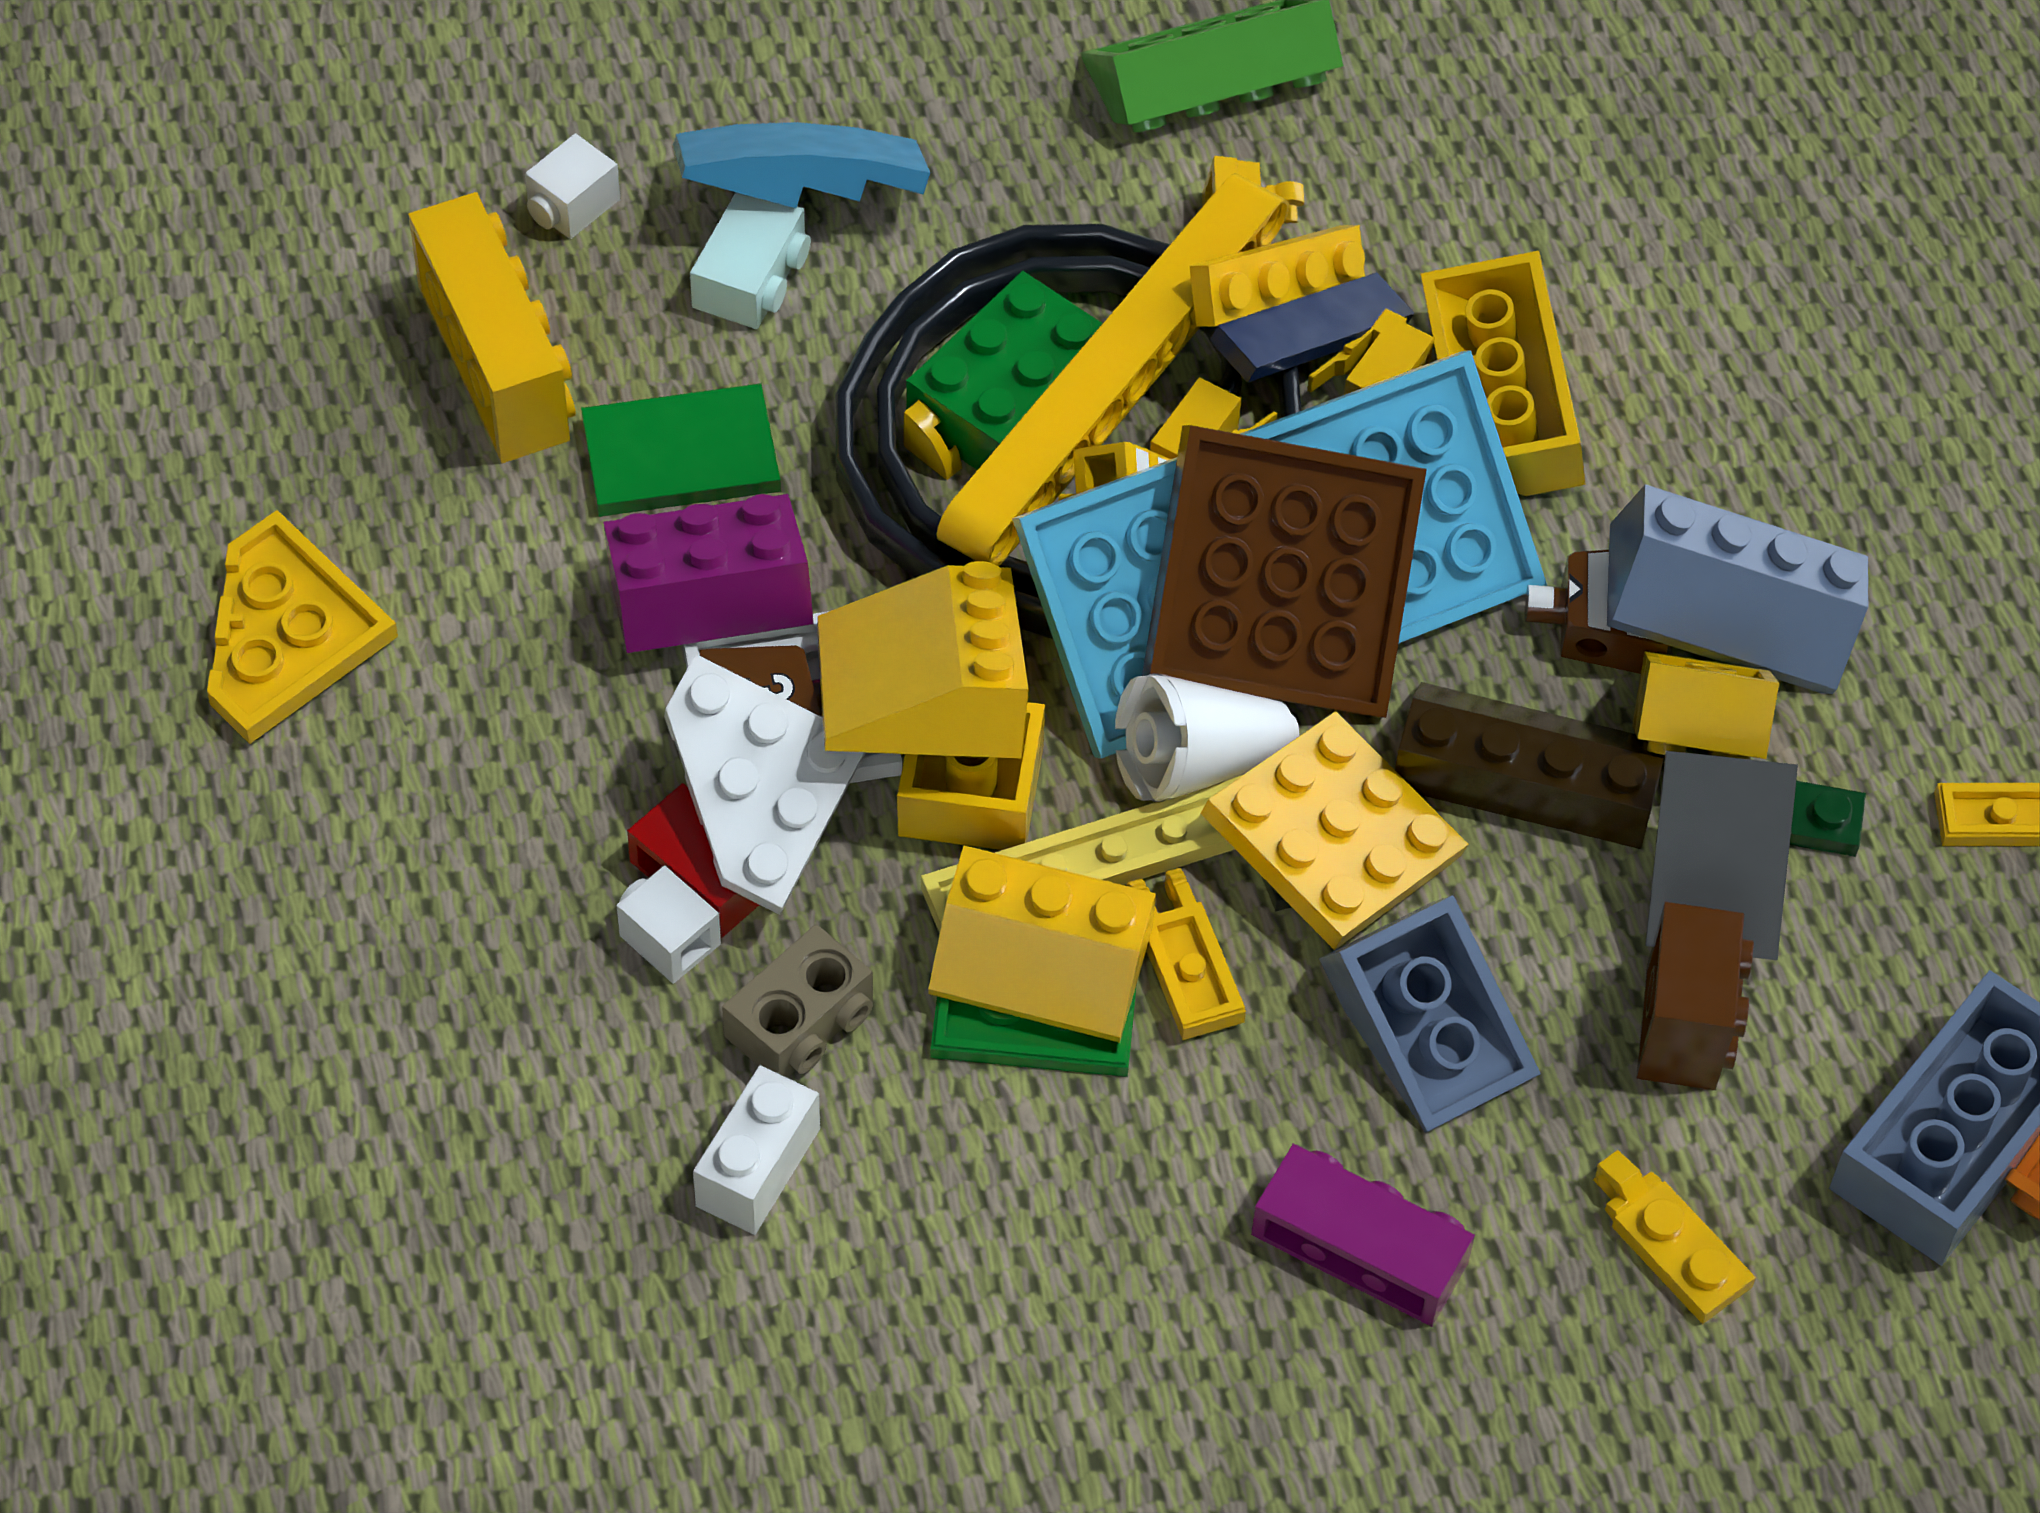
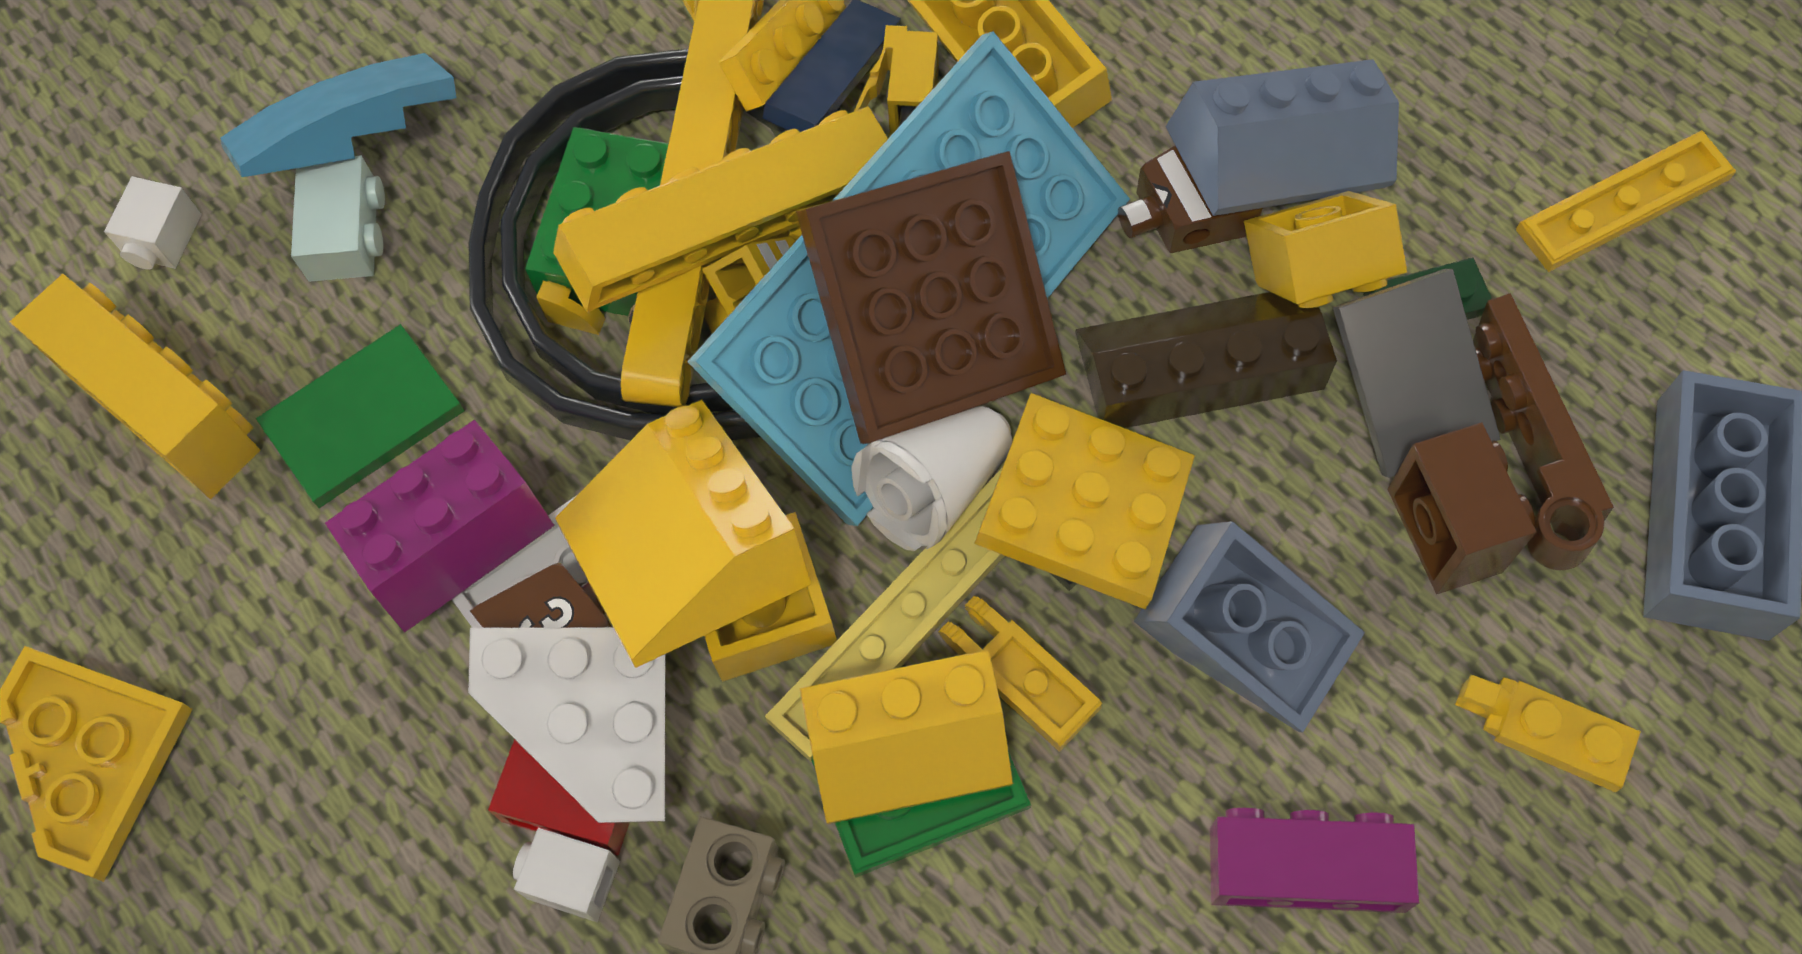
camera: 20 degrees left, 10 degrees up
(1108, 396) = (711, 210): none -> yellow brick
(1800, 1006) = (1544, 437): none -> reddish brown hinge

